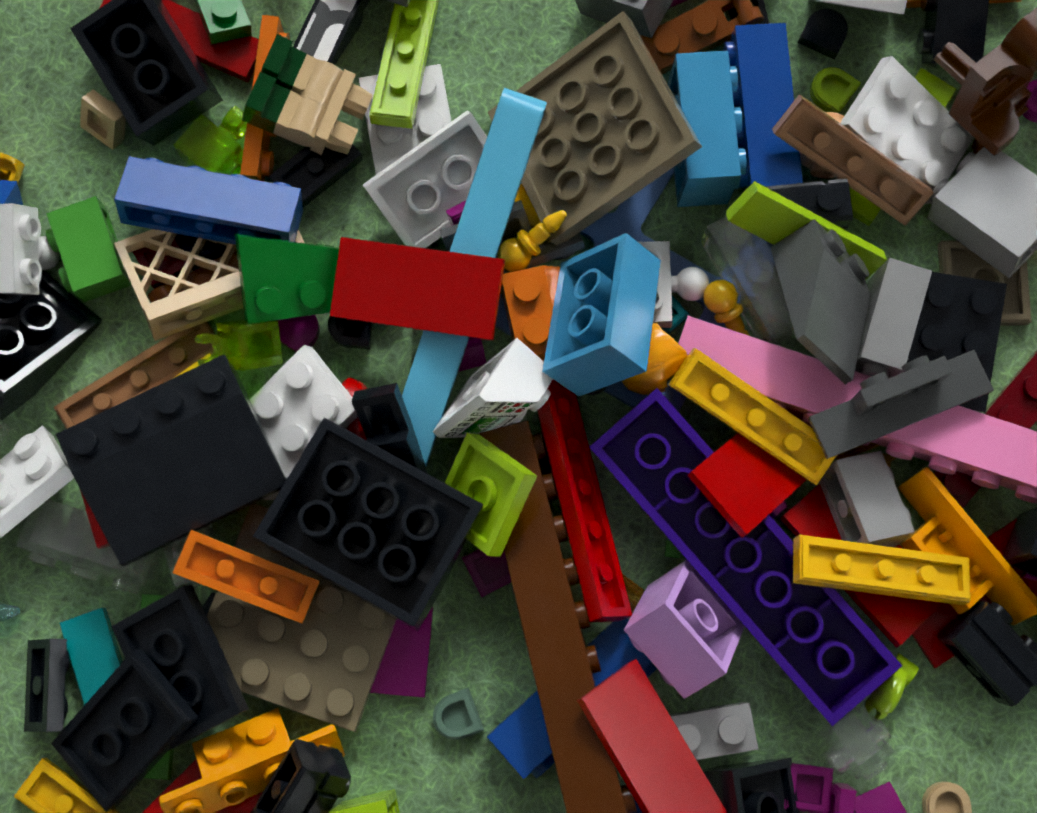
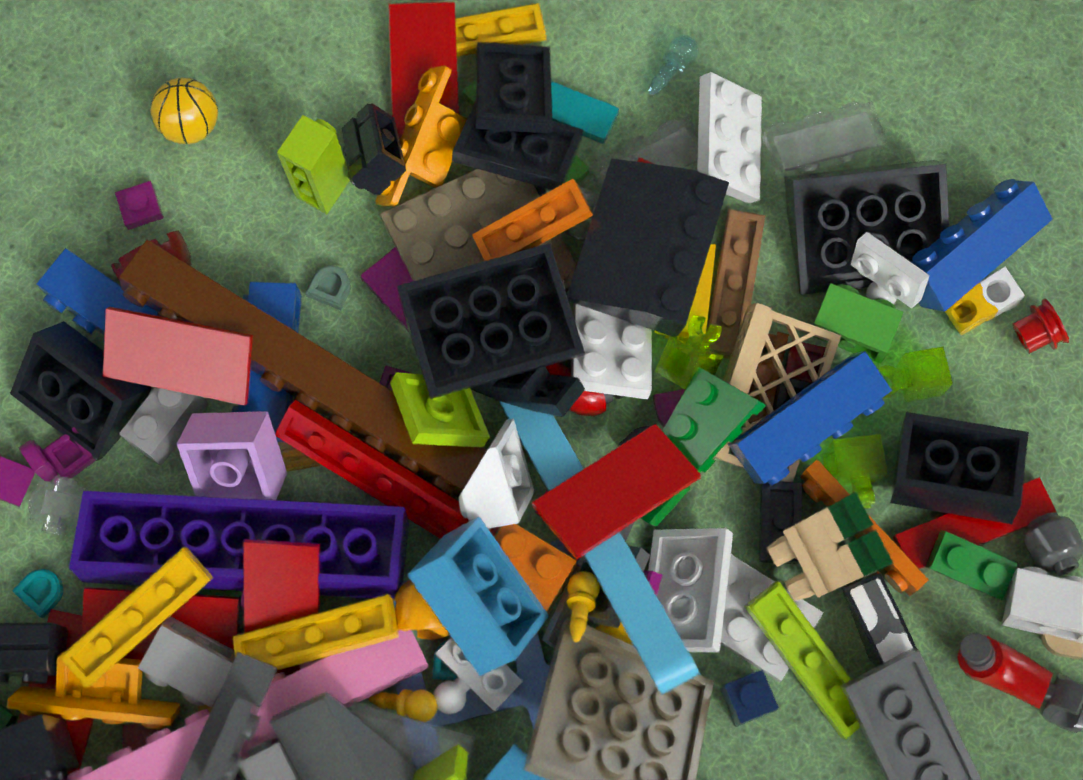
camera: 140 degrees right, 5 degrees down
(45, 685) = (588, 70): black plate -> none
(89, 161) = (919, 374): none -> clear neon green brick
(102, 119) = (950, 408): tan plate -> none
(477, 71) = (749, 698): none -> dark blue brick
(889, 693) = (68, 582): lime arm -> none
(932, 691) = (40, 591): none -> teal tile

